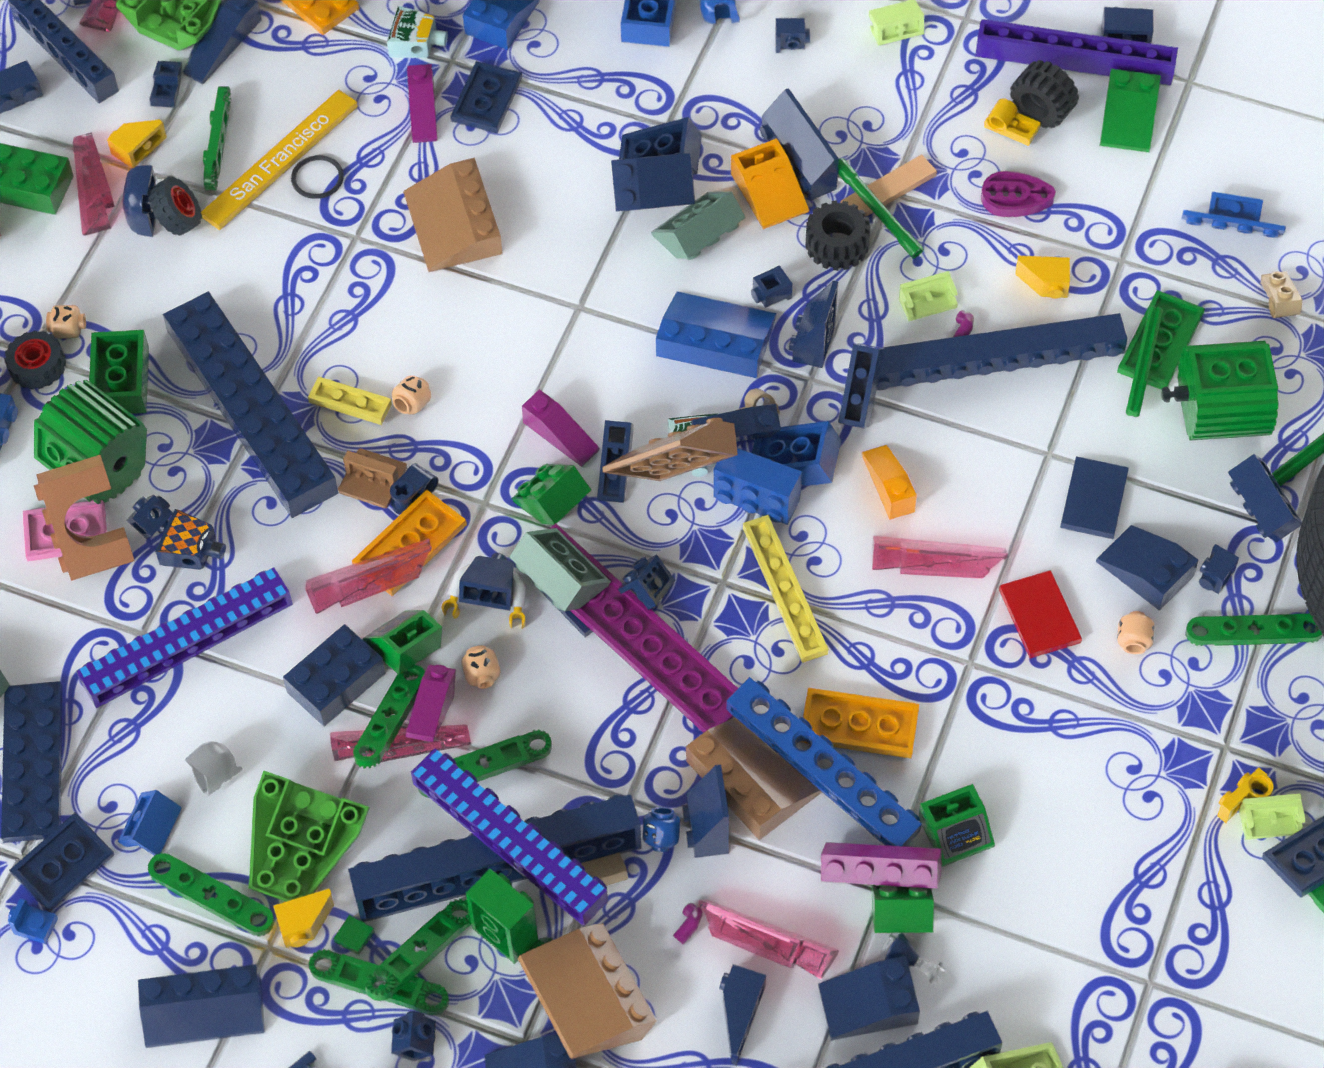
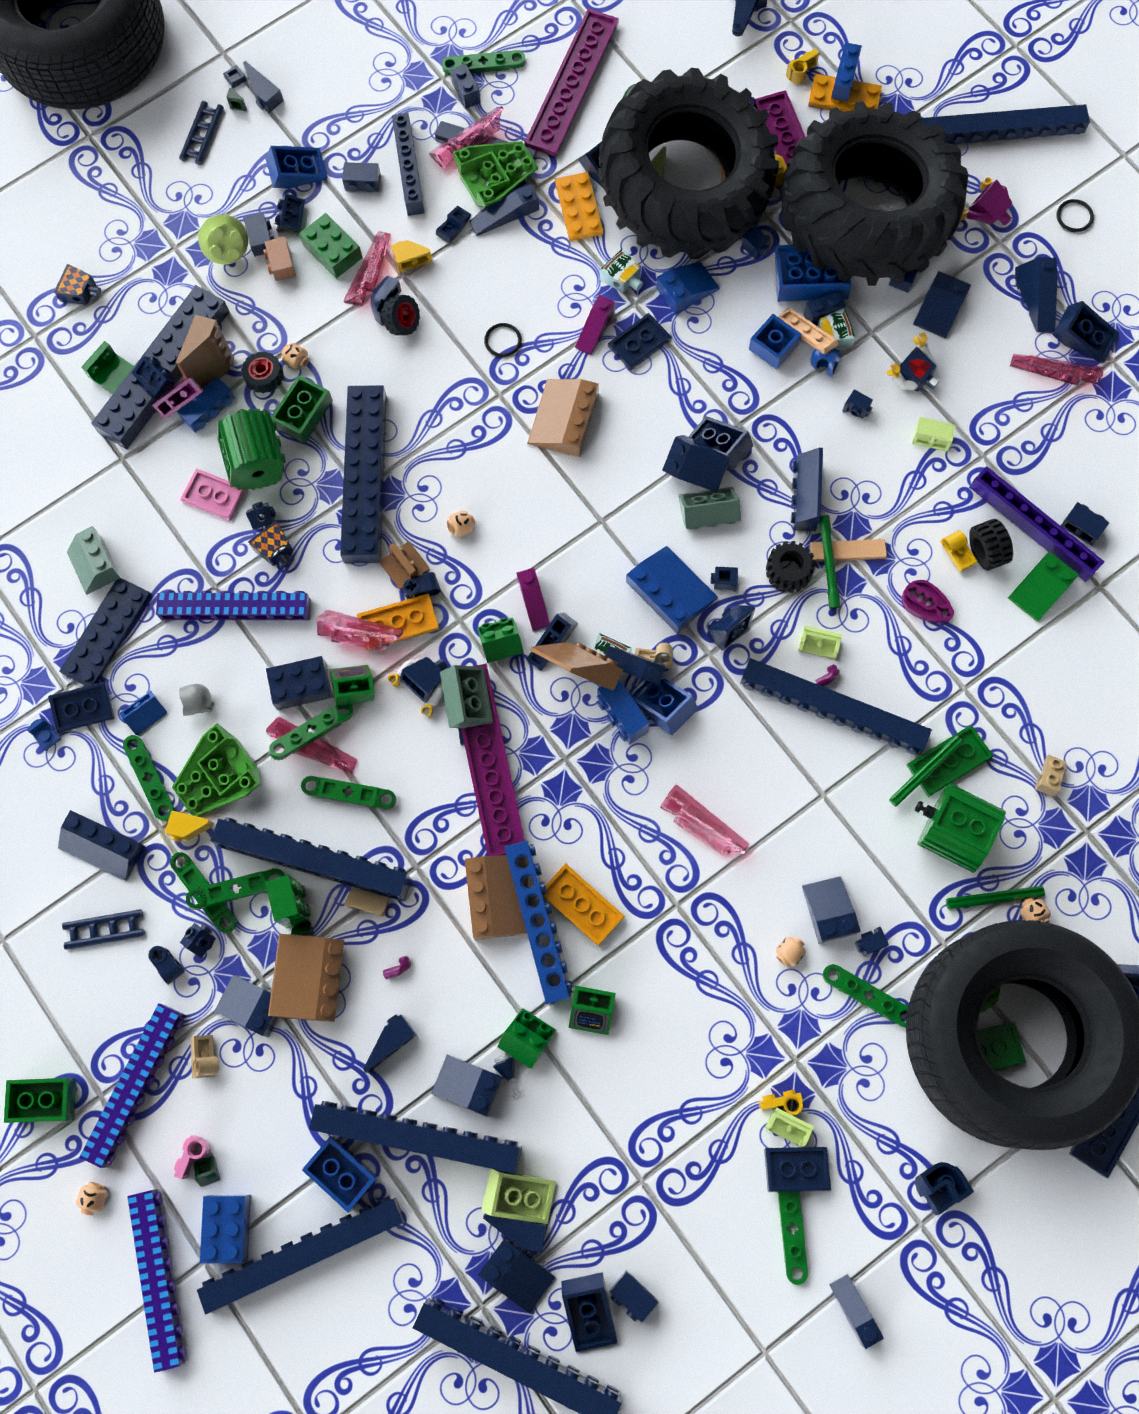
camera: 35 degrees right, 15 degrees up
(80, 553) = (204, 515): nougat arch -> none
(219, 122) = (453, 286): green piece -> none
(278, 159) = (487, 314): yellow tile -> none
(349, 400) = (423, 506): light yellow plate -> none
(354, 935) = (209, 854): green tile -> none
(432, 702) = (338, 738): magenta slope -> none
(480, 667) = (385, 729): light nougat head -> none
(510, 836) = (316, 859): dark purple brick -> none
(649, 580) = (515, 735): dark blue bracket -> none
(661, 829) = (418, 900): blue head -> none
(708, 816) = (449, 912): dark blue slope -> none
(767, 939) = (436, 1008): clear pink wedge -> none
(768, 183) = (771, 505): light orange slope -> none
(785, 589) = (597, 788): light yellow plate -> none
(861, 385) = (730, 683): dark blue brick -> none
(881, 865) = (528, 1008): brick -> none
(890, 481) = (709, 753): light orange slope -> none
(1040, 614) = (741, 901): red tile -> none
(1045, 275) = (905, 672): yellow slope -> none
(1094, 497) = (830, 843): dark blue tile -> none
(1234, 212) = (1062, 700): blue bracket -> none
(1264, 498) = (935, 913): dark blue brick -> none

